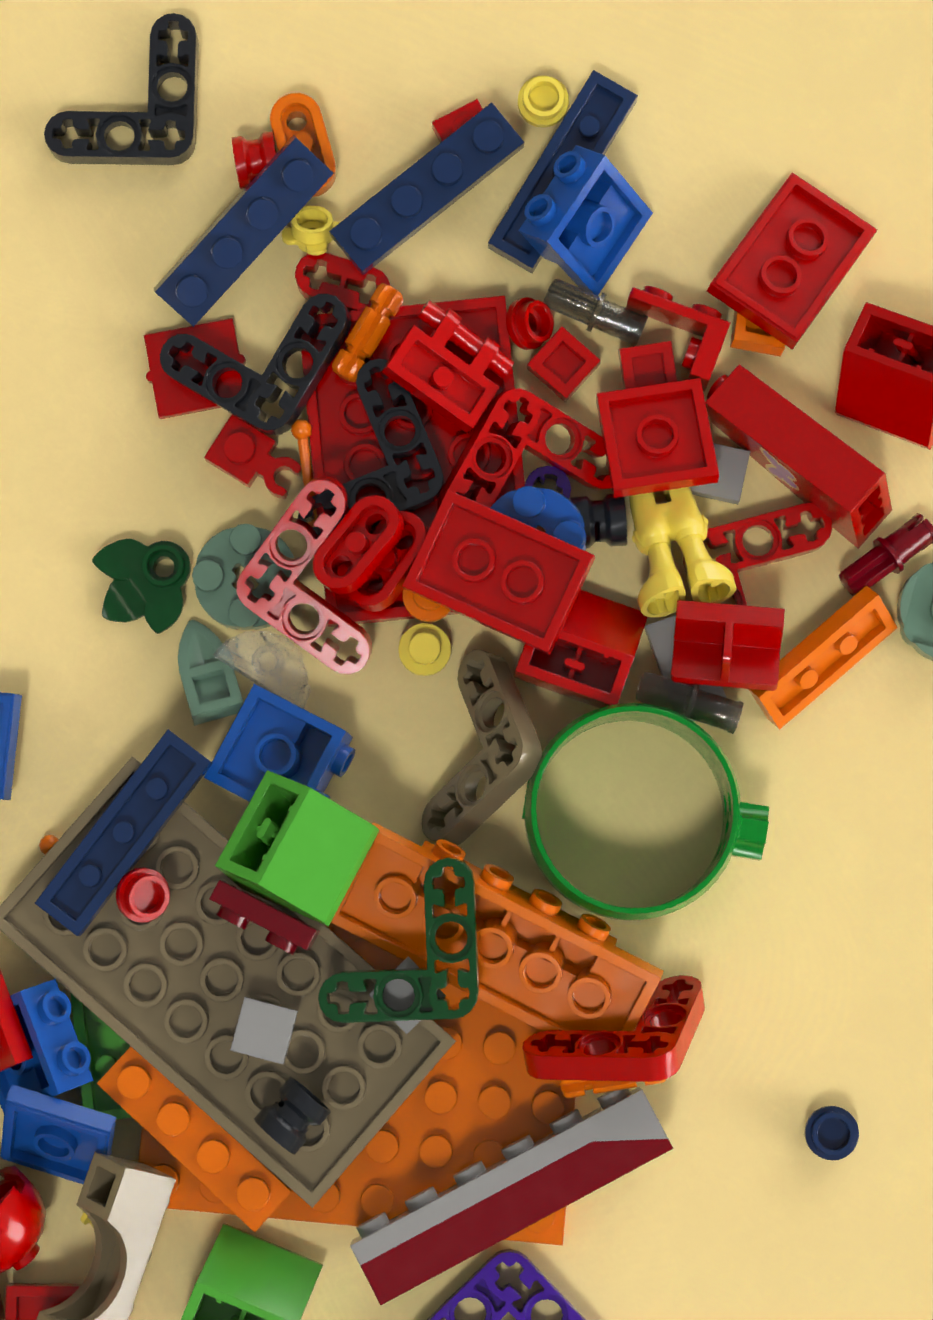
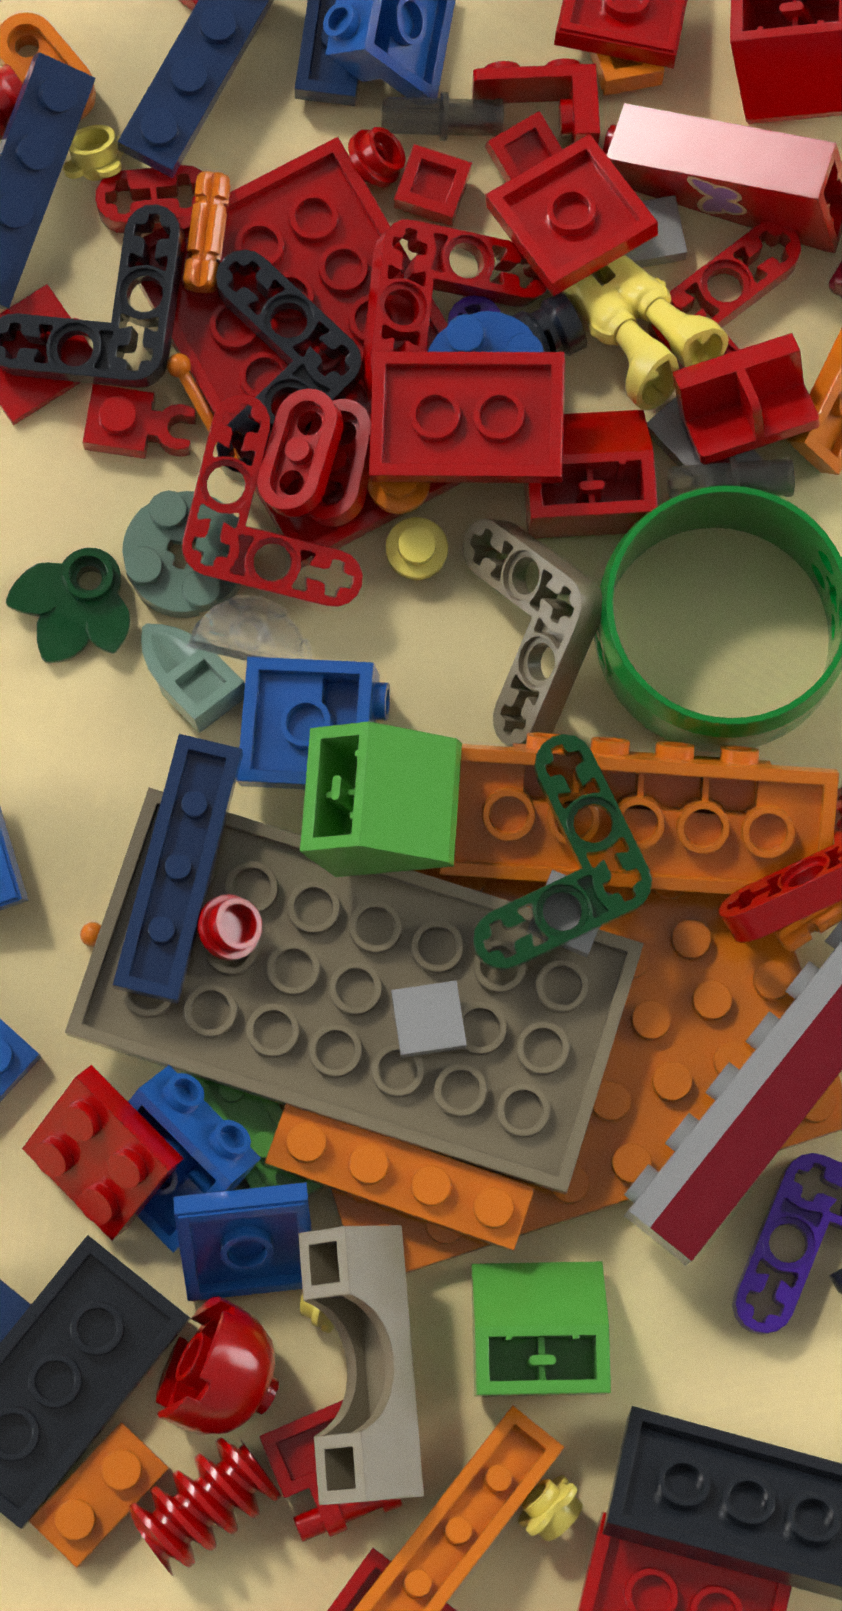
camera: 30 degrees left, 5 degrees down
(242, 908) = (347, 891): dark red plate -> none
(289, 1119) = (501, 1098): black wheel -> none
(441, 377) = (308, 241): red plate -> none

